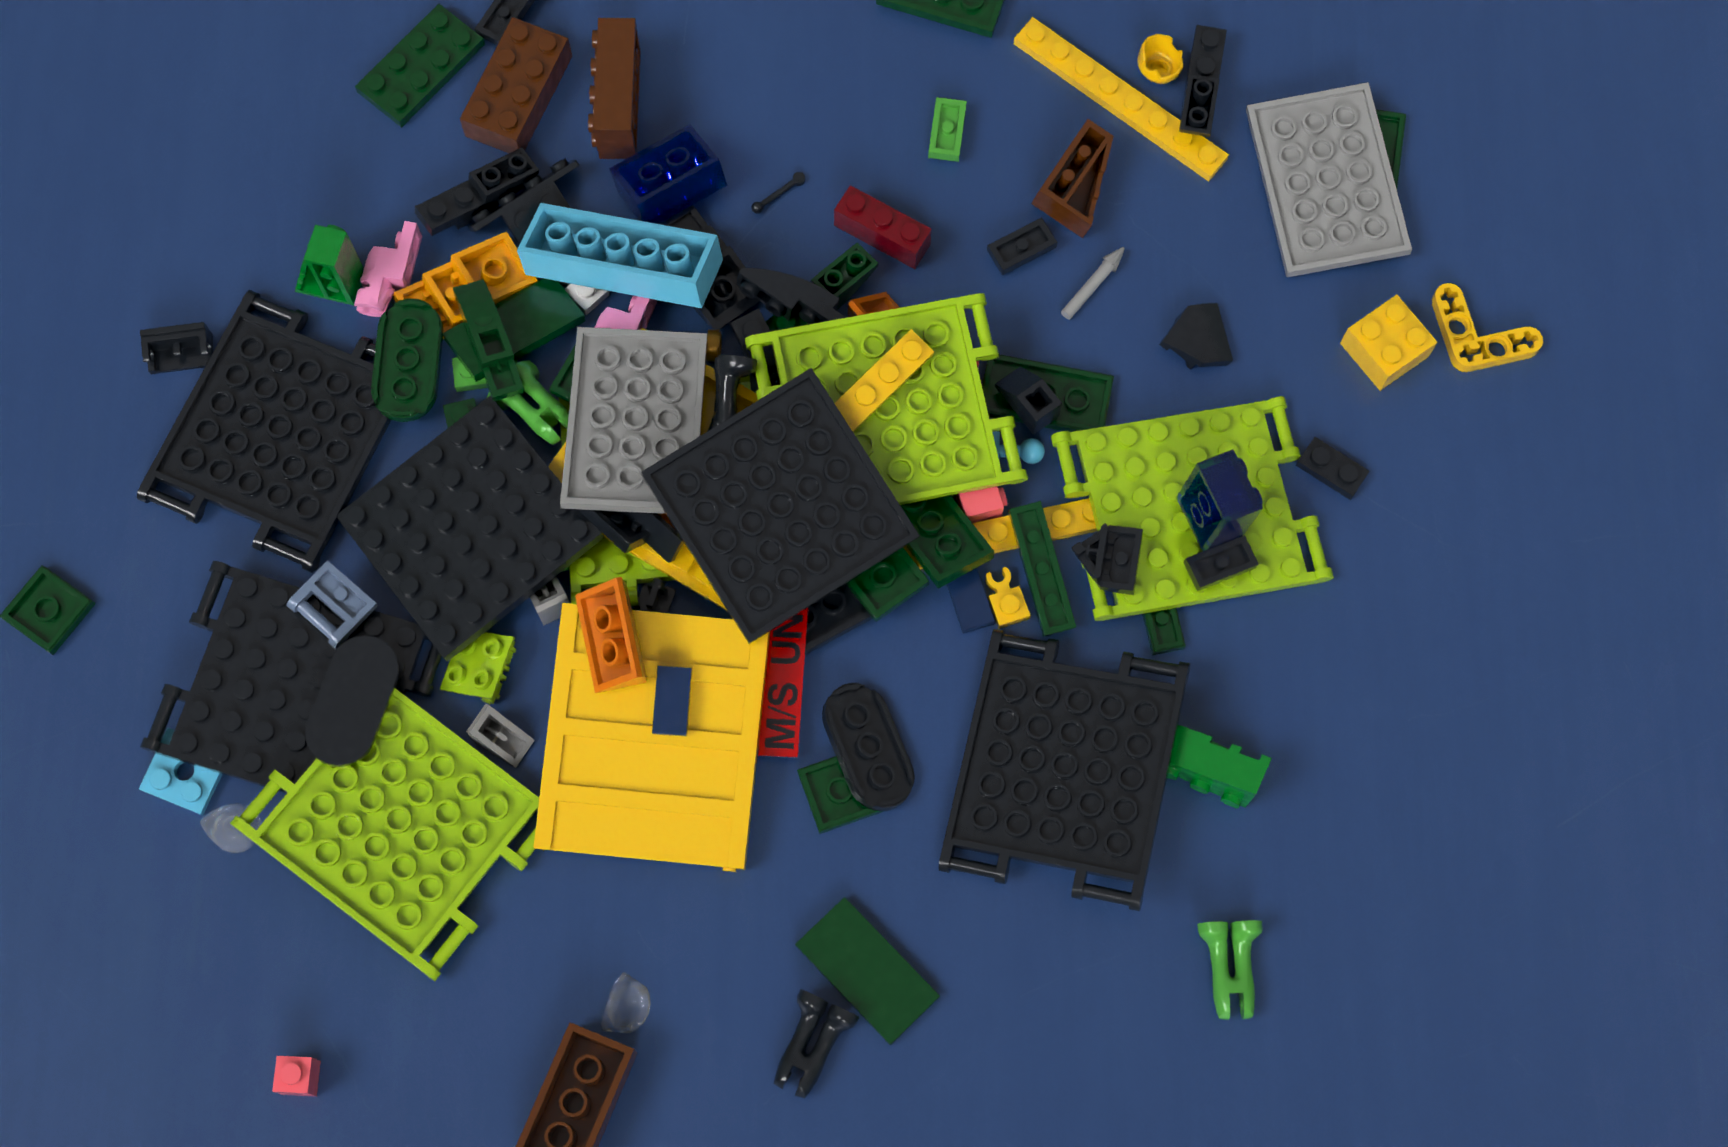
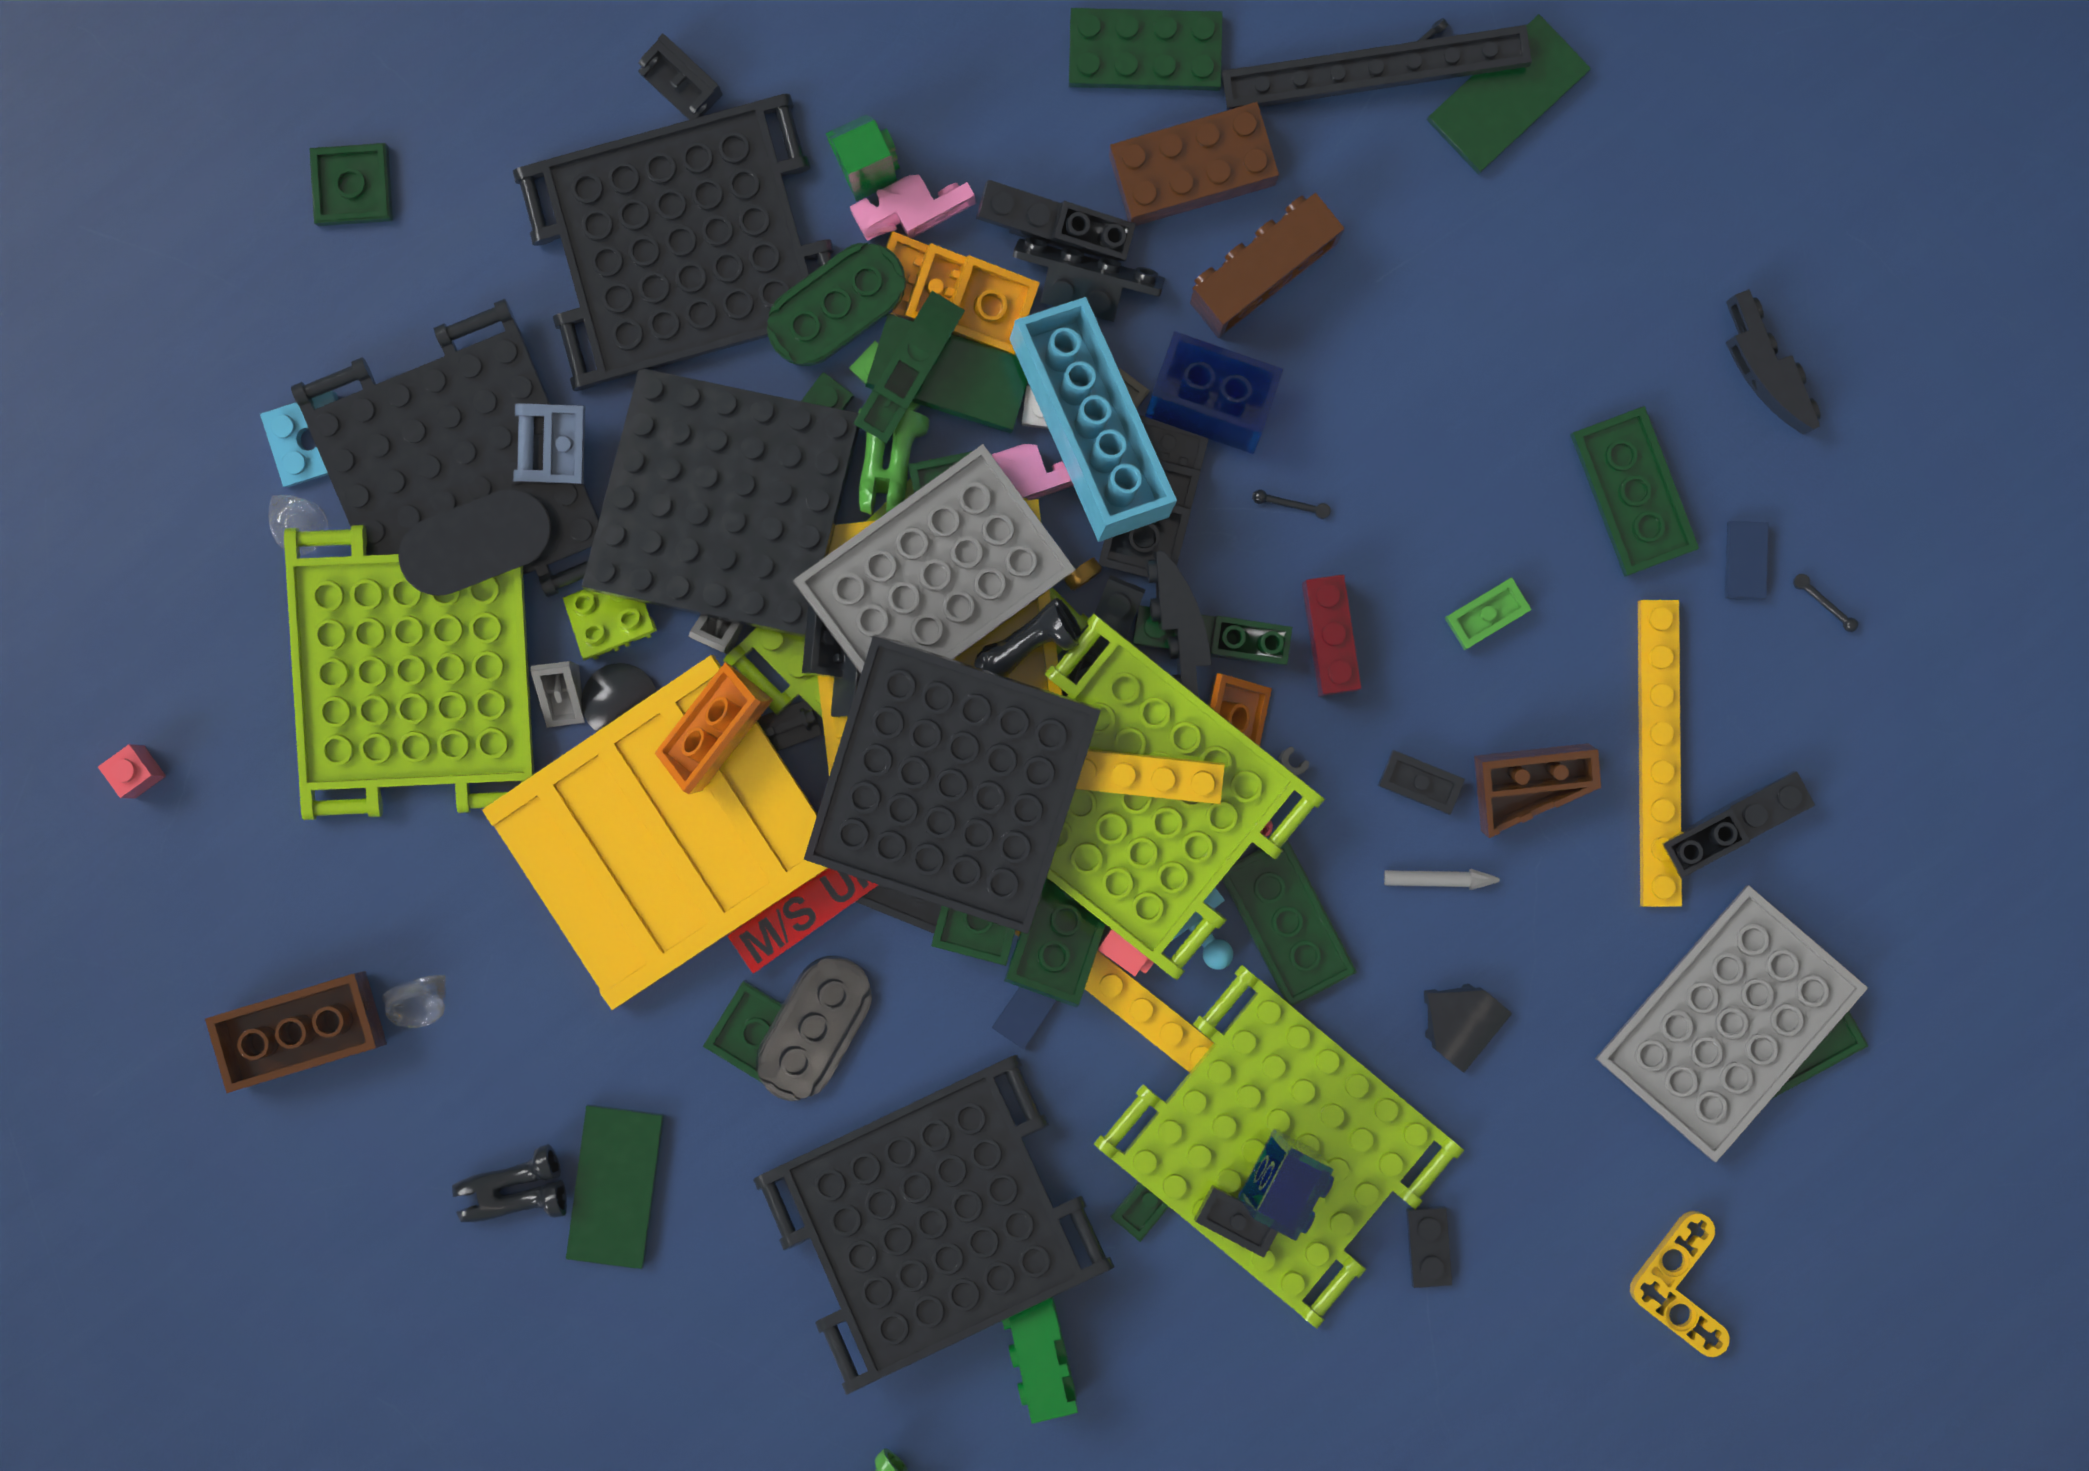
camera: 55 degrees right, 15 degrees up
(530, 703) = (614, 692): none -> black dish
(672, 701) = (701, 829): dark blue tile -> none
(1007, 603) = (1051, 1046): yellow plate -> none
(1030, 398) = (1263, 914): black slope -> none
(1042, 568) = (1105, 1055): dark green plate -> none
(1112, 557) = (1162, 1117): black slope -> none
(1160, 59) = (1730, 763): yellow hair -> none
(1388, 342) = (1599, 1209): yellow brick -> none

